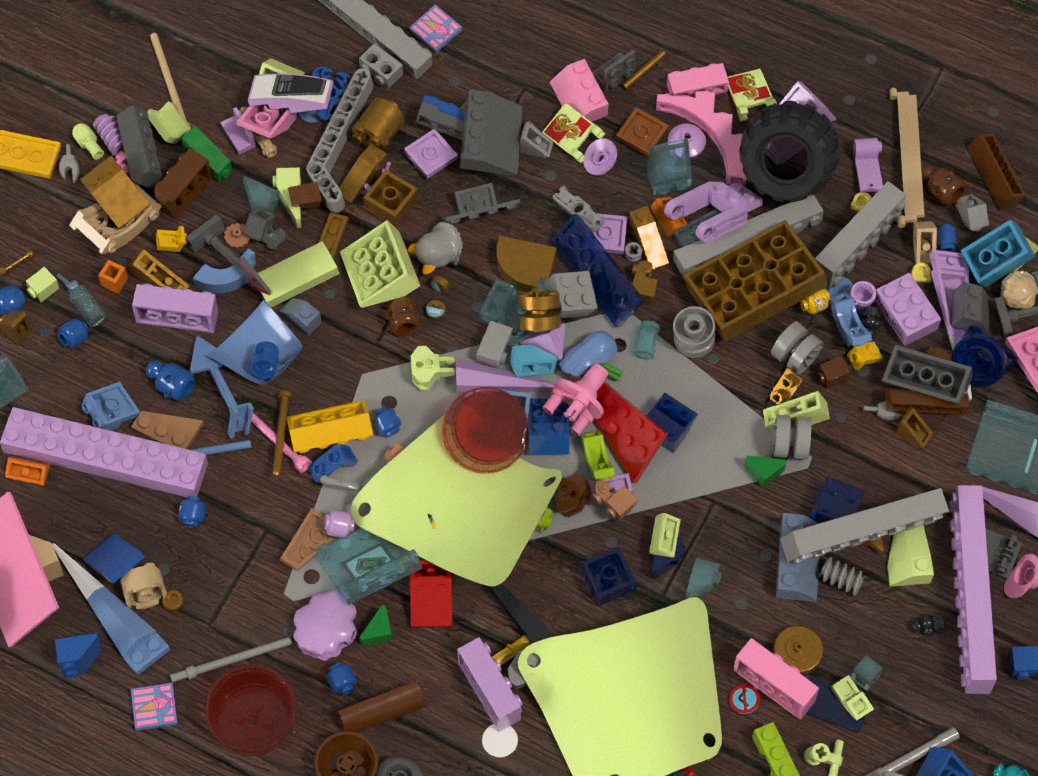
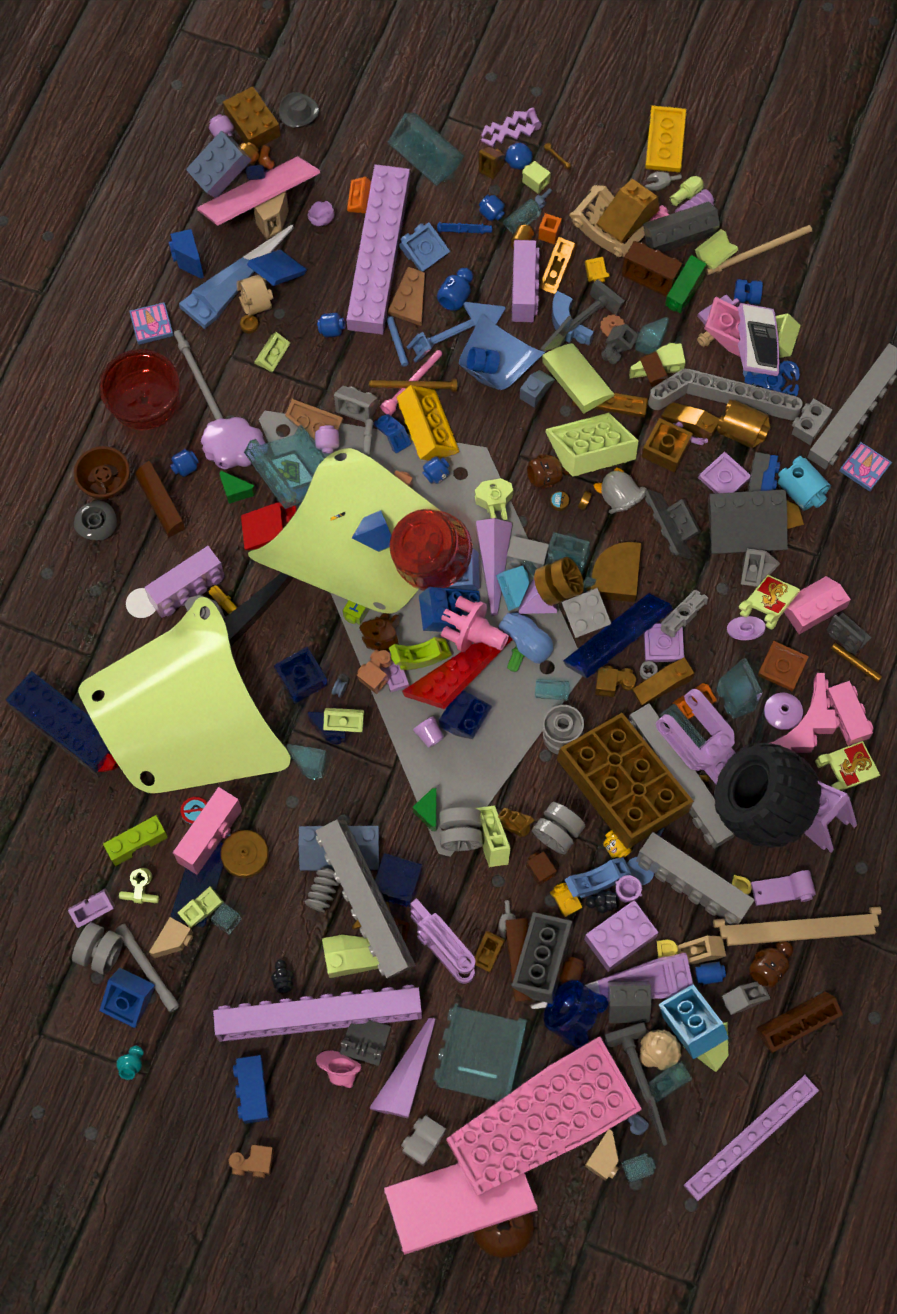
camera: 85 degrees right, 5 degrees up
(47, 509) = (321, 213): none -> lavender hair
(90, 368) = (467, 228): none -> blue piece
(117, 307) = (522, 232): none -> pearl gold brick
(212, 579) = (272, 352): none -> yellowish green slope
(222, 100) = (754, 291): none -> blue wheel
(295, 493) = (355, 403): none -> light grey slope
(453, 79) = (808, 488): none -> medium azure cylinder
(454, 484) = (373, 532): none -> blue slope
(624, 542) = (339, 688): none -> sand blue bush
(682, 459) = (429, 732): none -> lavender piece
(884, 728) = (171, 939): none -> tan slope
(909, 462) = (443, 942): none -> lavender plate

